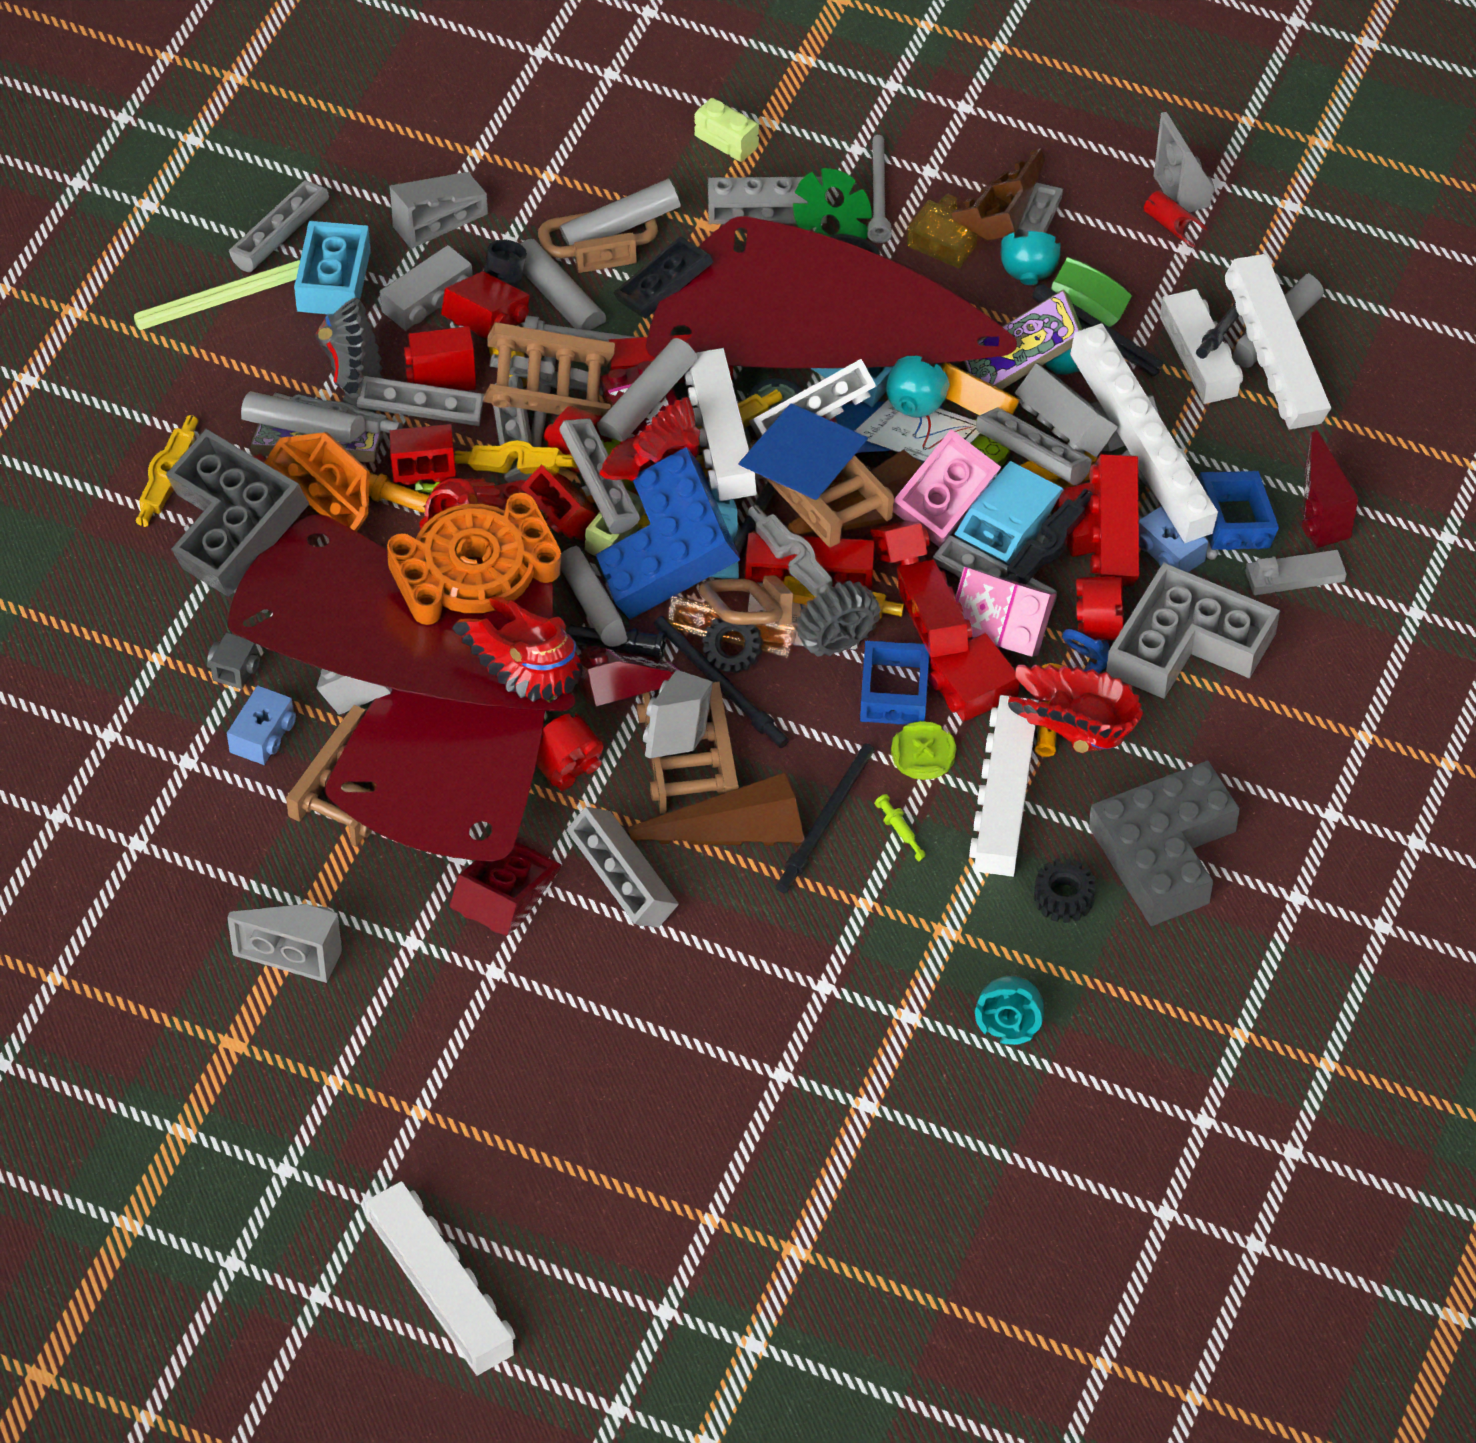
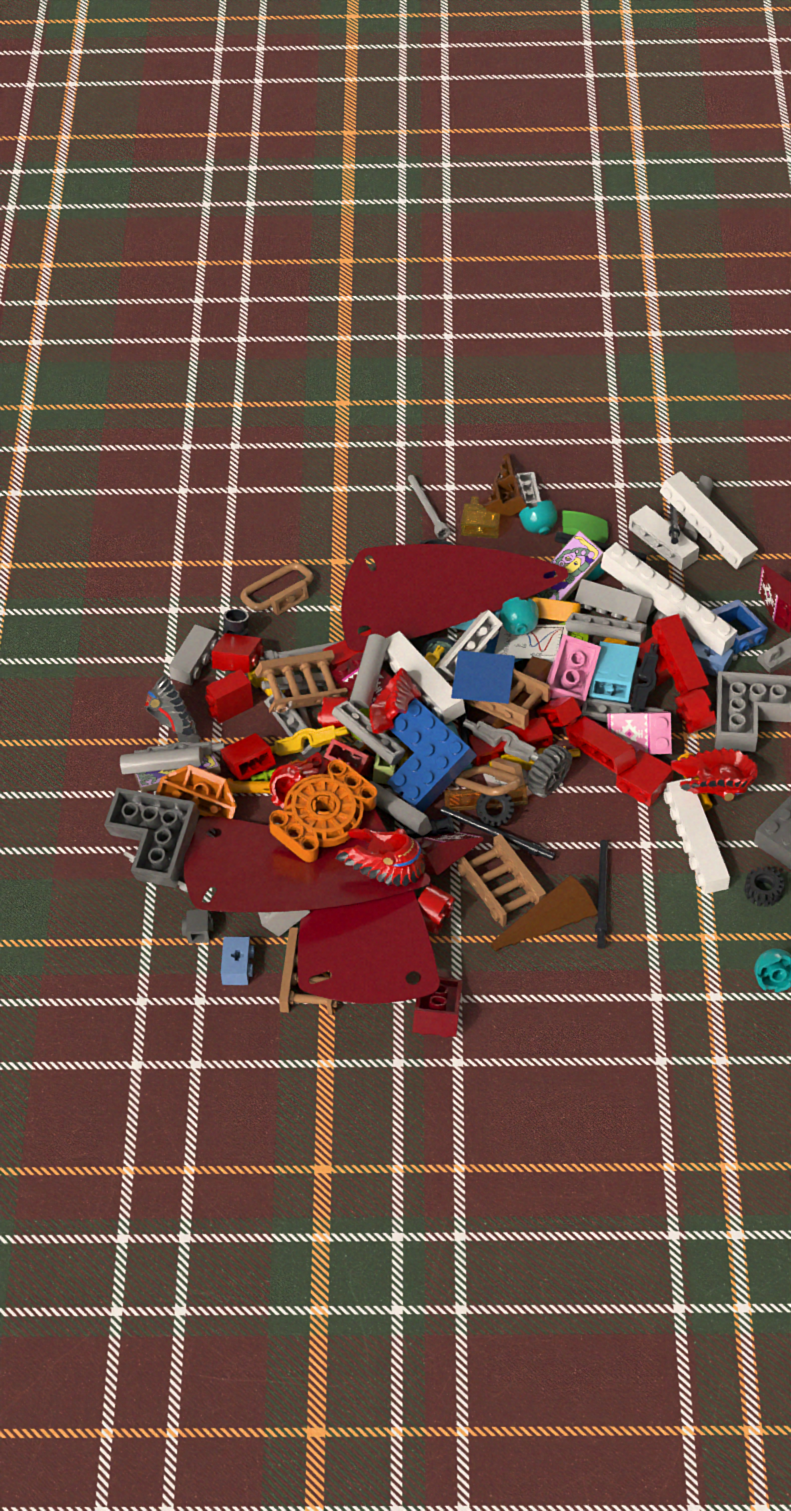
camera: 20 degrees left, 0 degrees up
(159, 487) = (91, 831): yellow piece -> none
(216, 295) = (66, 702): yellowish green axle -> none
(278, 225) = (81, 647): light grey brick -> none
(288, 938) = (327, 1089): light grey slope -> none
(331, 266) = (131, 662): medium azure brick -> none
(420, 400) = (229, 724): light grey brick -> none
(435, 206) = (173, 603): light grey wedge -> none
(440, 1278) = (532, 1268): white brick -> none
(560, 288) = (275, 629): light grey brick -> none
(622, 213) = (288, 571): light grey brick -> none
(622, 867) = (503, 968): light grey brick -> none
(655, 280) = (328, 607): black tile -> none
(677, 715) = (493, 862): light grey slope -> none
(726, 129) = (321, 500): yellowish green brick -> none
(754, 197) = (367, 534): light grey brick -> none
(854, 205) = (422, 522): green piece -> none
(878, 706) = (604, 813): blue window -> none
(894, 818) = (642, 878): lime piece -> none
(923, 750) = (636, 832): lime tile -> none
(1092, 648) = (698, 736): blue piece -> none
(1170, 215) = (603, 467): red piece -> none
(1179, 170) = (598, 438): light grey slope -> none

